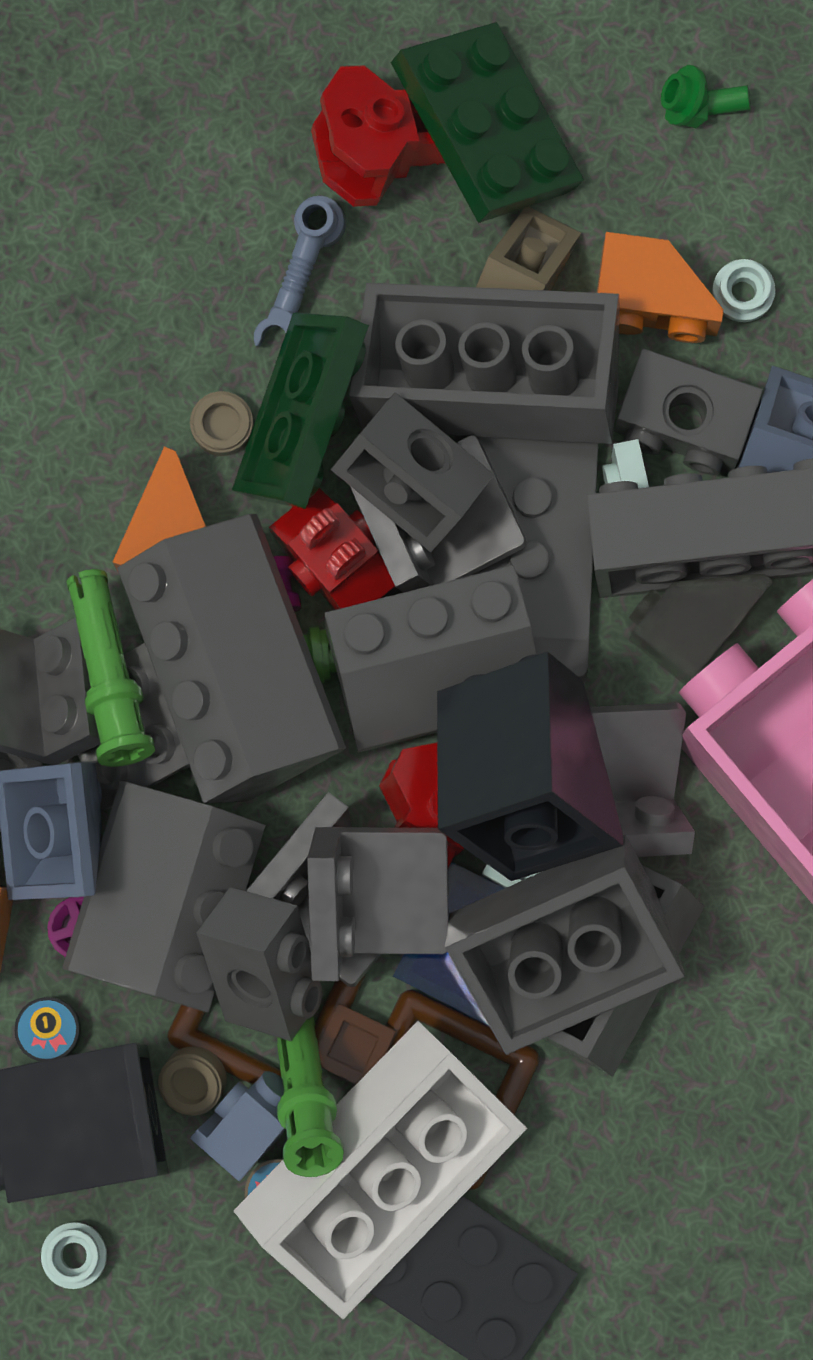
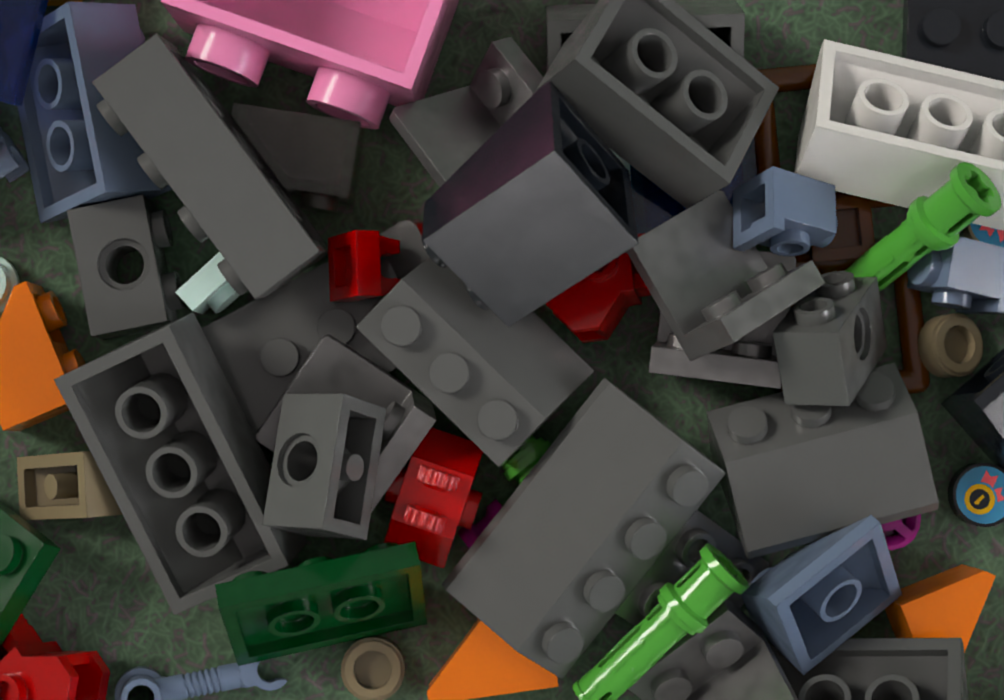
camera: 120 degrees left, 5 degrees up
(393, 992) = (784, 213): none -> sand blue brick
(569, 602) = (357, 266): none -> red tile

